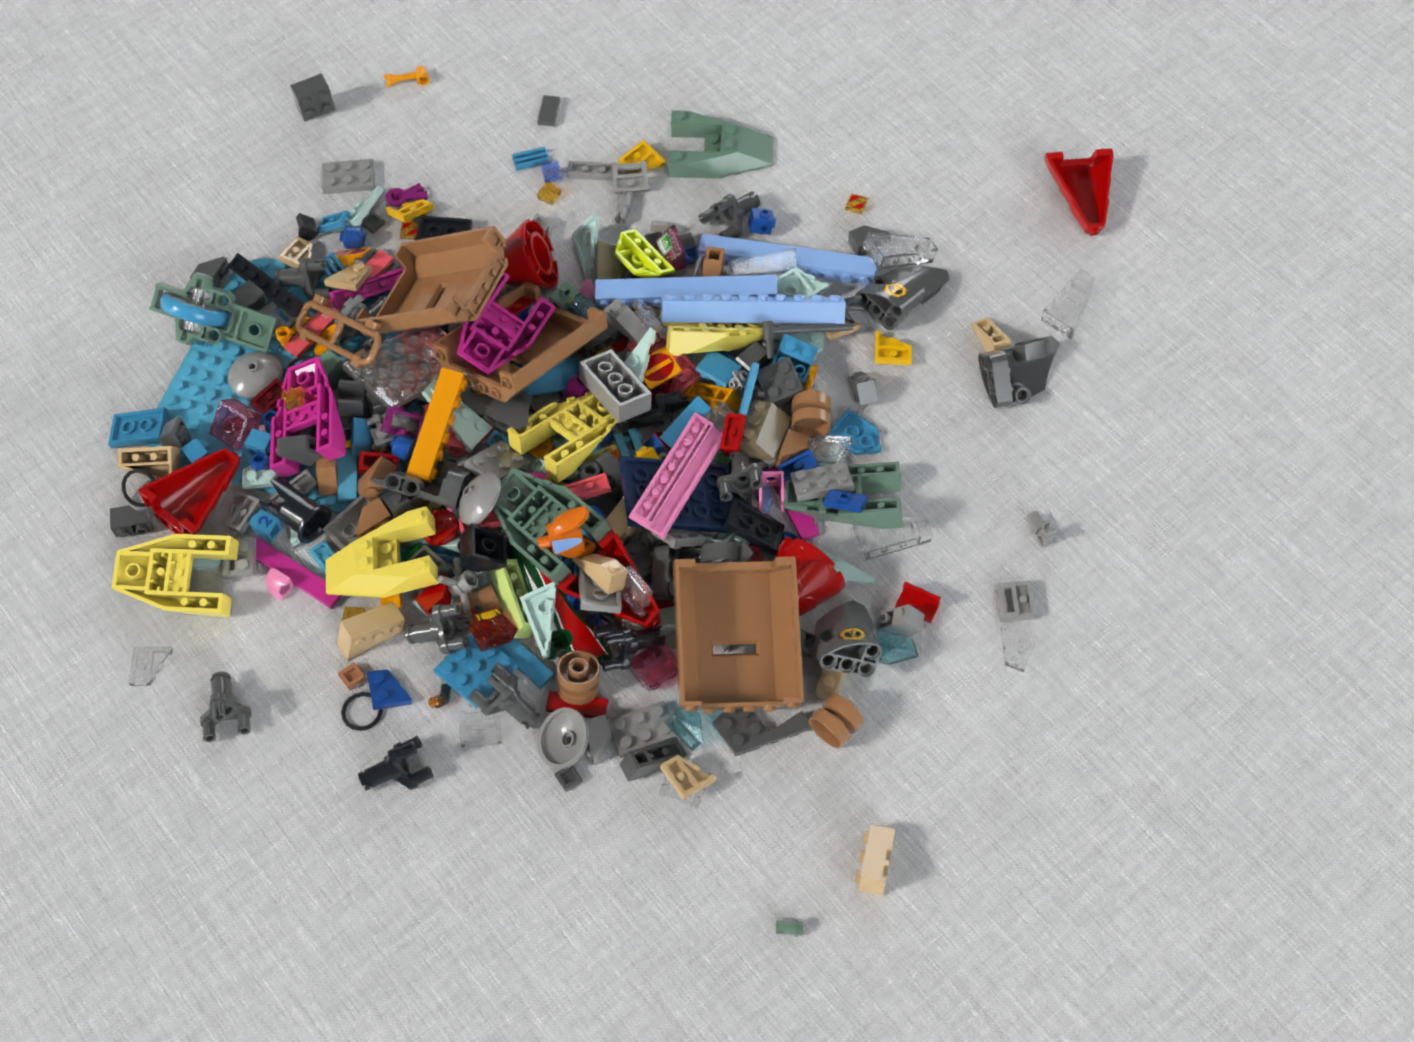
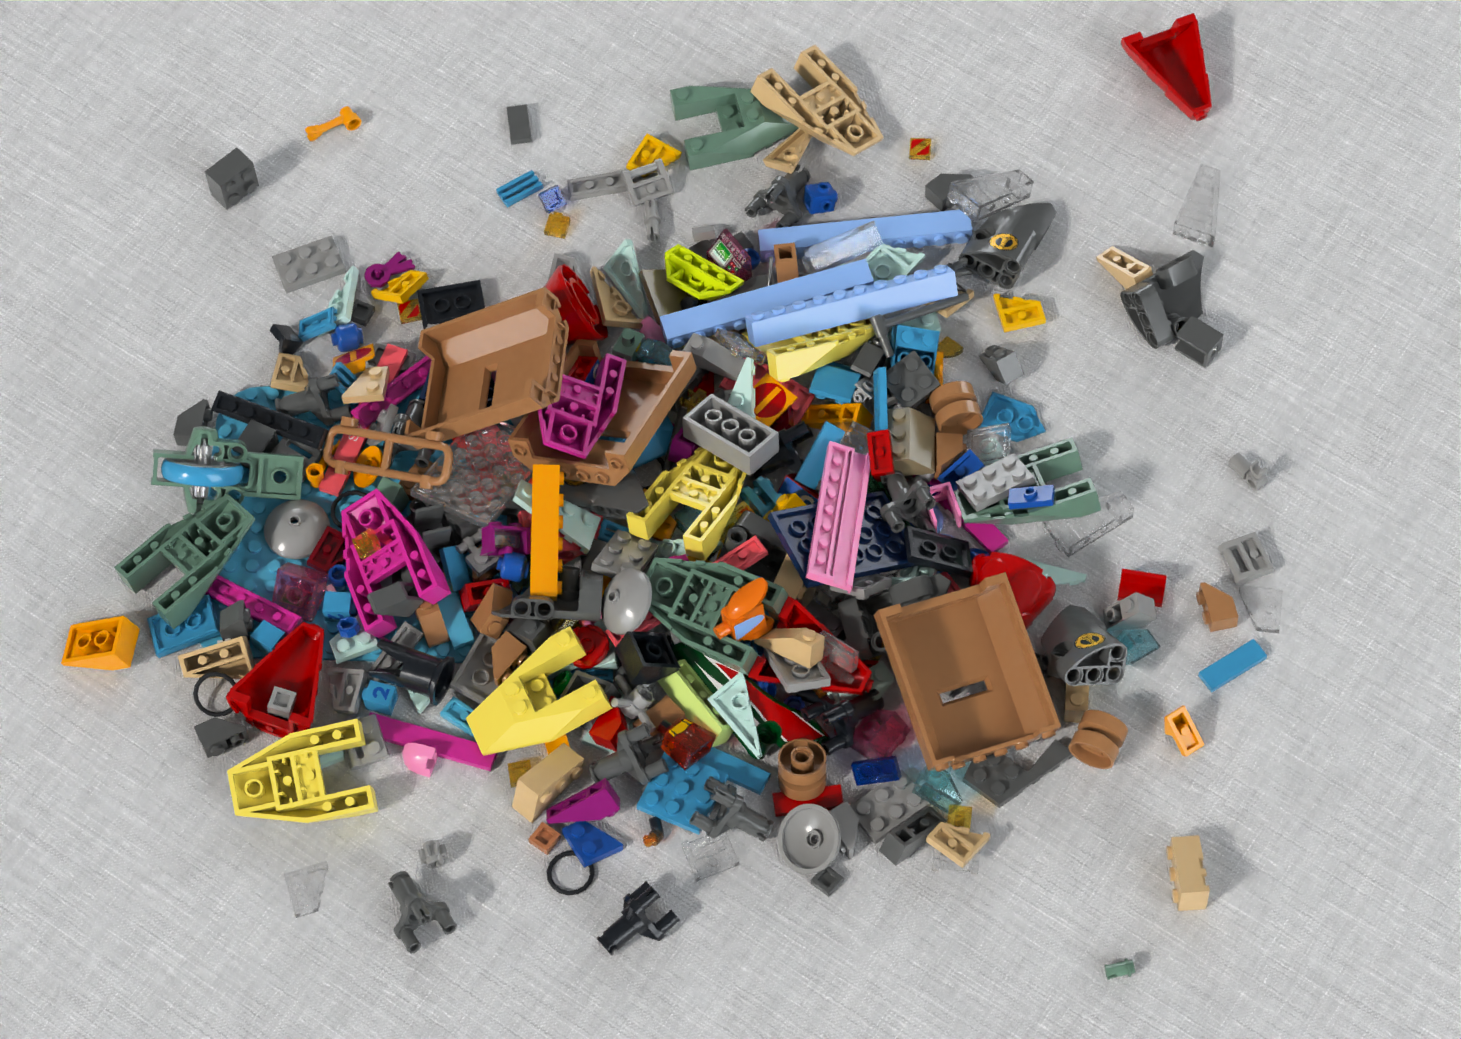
camera: 15 degrees left, 0 degrees up
(71, 425) = (101, 644): none -> light orange slope
(167, 370) = (197, 547): none -> sand green wedge
(183, 507) = (281, 703): none -> light grey brick
(195, 424) = (260, 608): none -> dark pink tile
(255, 664) = (433, 854): none -> light grey gear
(394, 658) = (587, 805): none -> magenta slope
(567, 263) = (611, 304): none -> tan wing
(640, 695) = (876, 770): none -> clear blue plate
(696, 754) = (959, 816): none -> clear yellow tile
(748, 182) = (789, 152): none -> tan wing
(791, 156) = (828, 111): none -> tan wedge
(825, 365) = (949, 348): none -> clear yellow tile
(912, 734) = (1183, 731): none -> light orange slope
(974, 689) = (1232, 665): none -> dark azure tile
(978, 636) = (1218, 608): none -> medium nougat slope
(1033, 411) = (1199, 341): none -> dark grey piece

